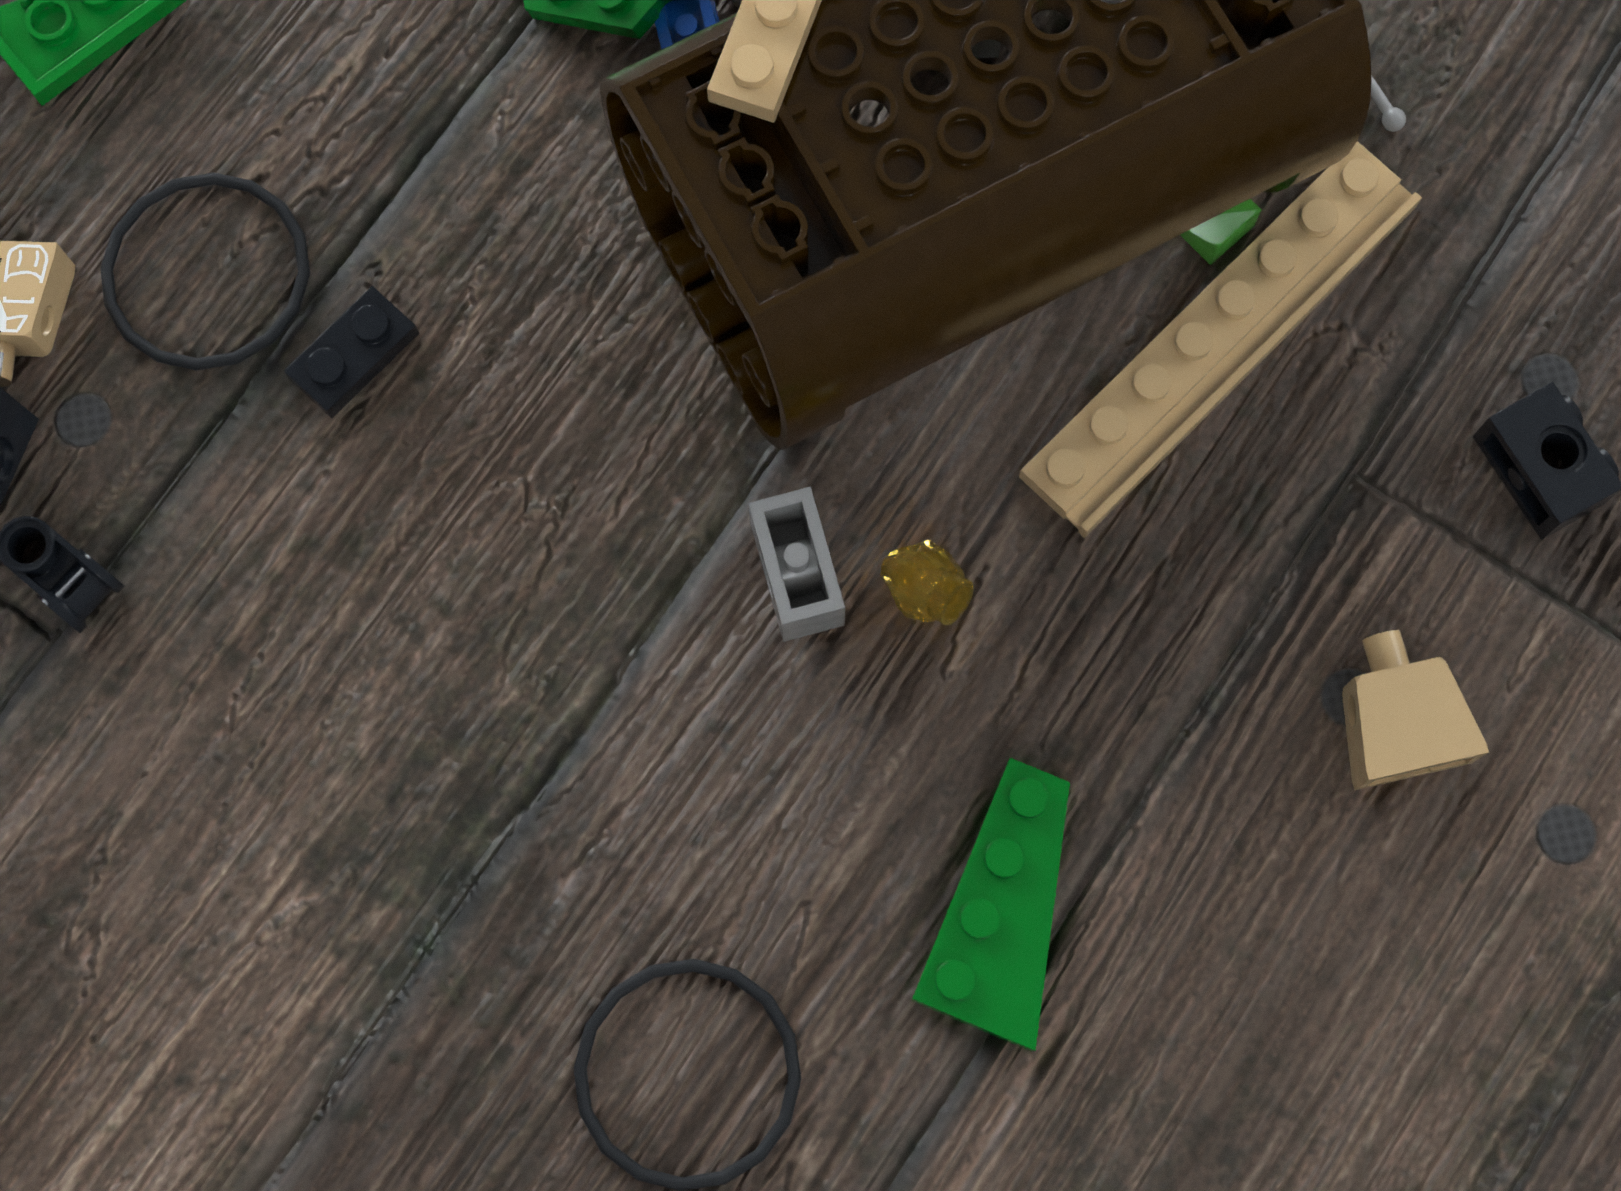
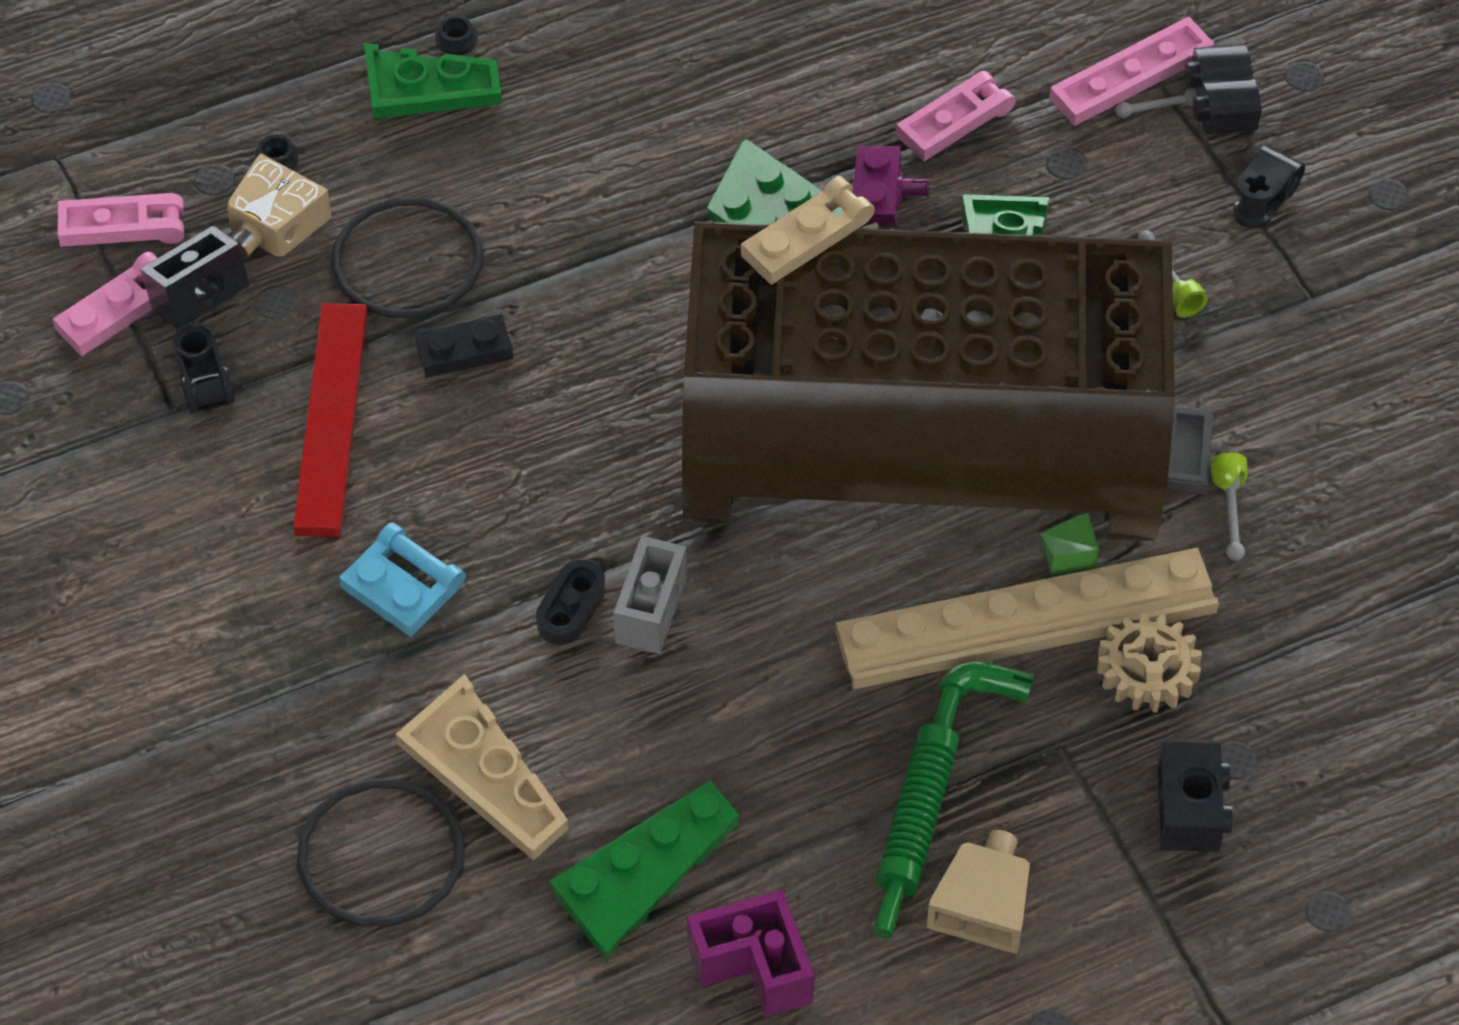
camera: 30 degrees right, 20 degrees down
(257, 543) = (330, 420): none -> red tile
(480, 726) = (395, 592): none -> medium azure plate
(701, 623) = (568, 605): none -> black plate
(722, 893) = (475, 760): none -> tan wing
(927, 583) = (728, 653): clear yellow rock -> none
(1214, 937) = (755, 940): none -> magenta brick
(1252, 616) = (926, 783): none -> green piece
(1401, 344) = (1144, 657): none -> tan gear

